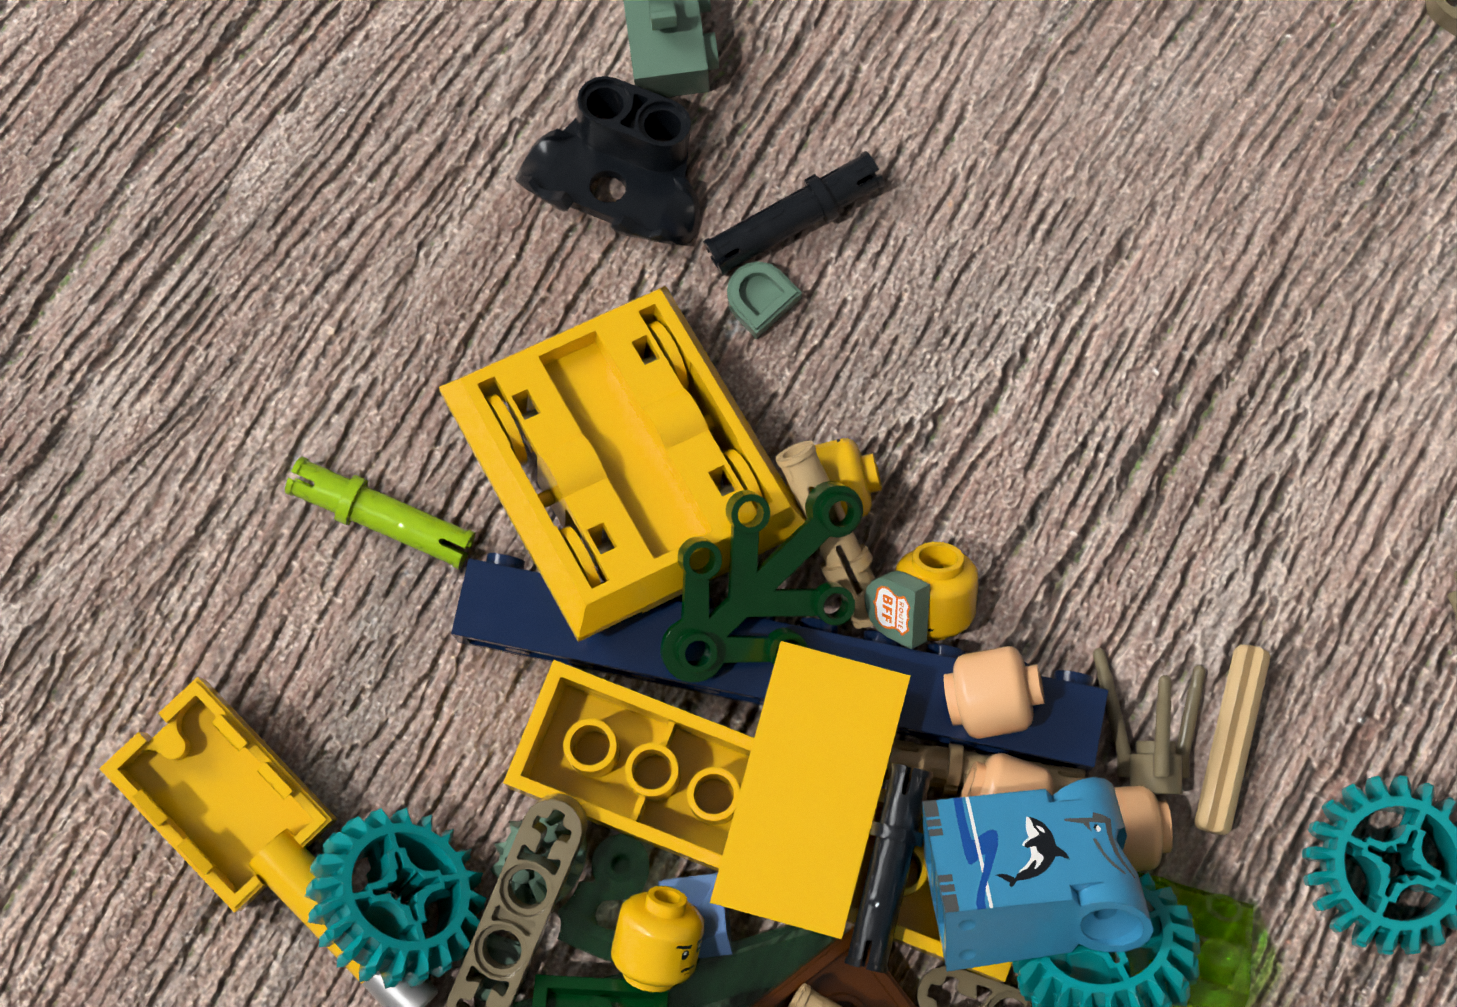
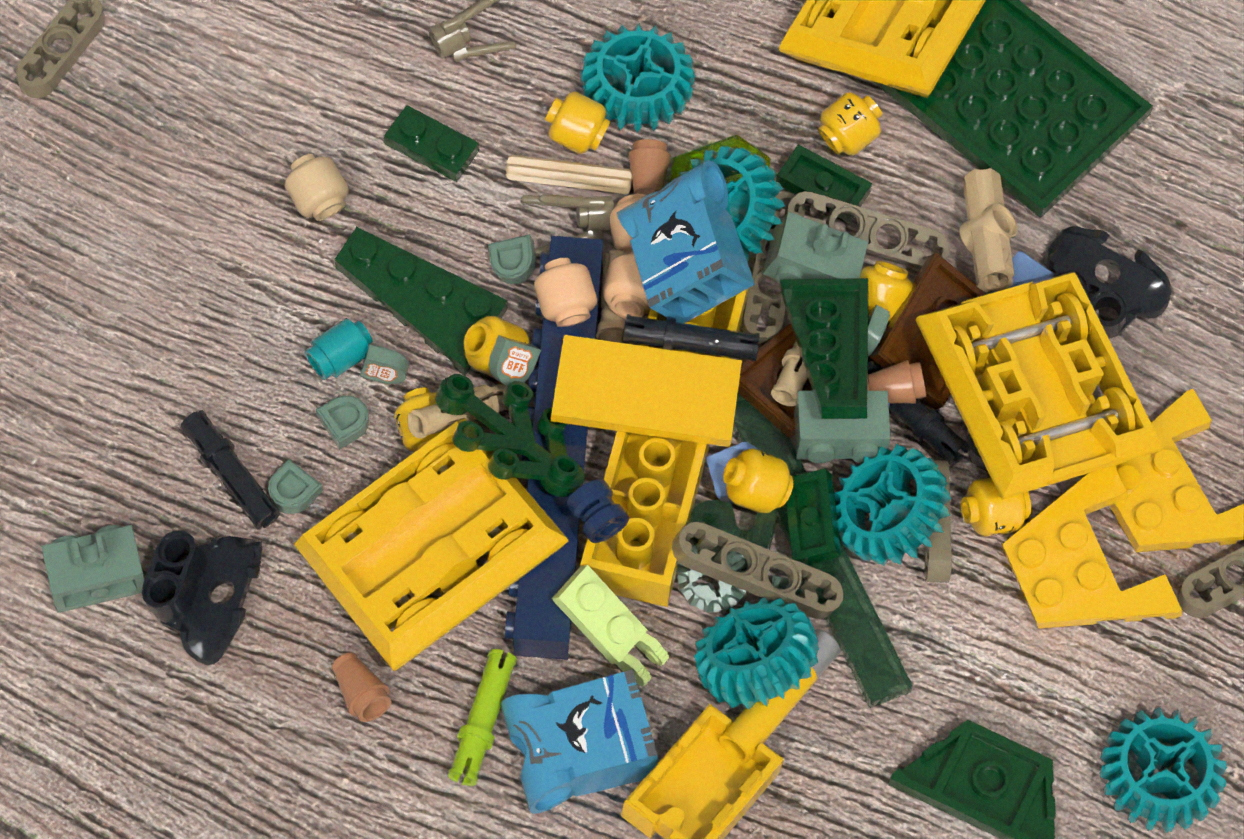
camera: 105 degrees left, 15 degrees down
(317, 640) = (580, 739): none -> dark azure piece
(446, 355) = (361, 688): none -> nougat cone
(477, 692) = (608, 623): none -> yellowish green hinge
(616, 688) = (597, 510): none -> dark blue wheel
(858, 375) = (344, 419): none -> sand green tile
(929, 435) = (384, 365): none -> sand green tile
(963, 373) = (338, 348): none -> teal brick
(1045, 502) = (418, 293): none -> dark green wing
(1091, 638) = (513, 259): none -> sand green tile
(1224, 859) = (648, 165): none -> nougat cone
(1233, 365) = (316, 187): none -> tan head
(1304, 542) = (431, 143): none -> dark green plate
(1316, 760) = (577, 122): none -> yellow head

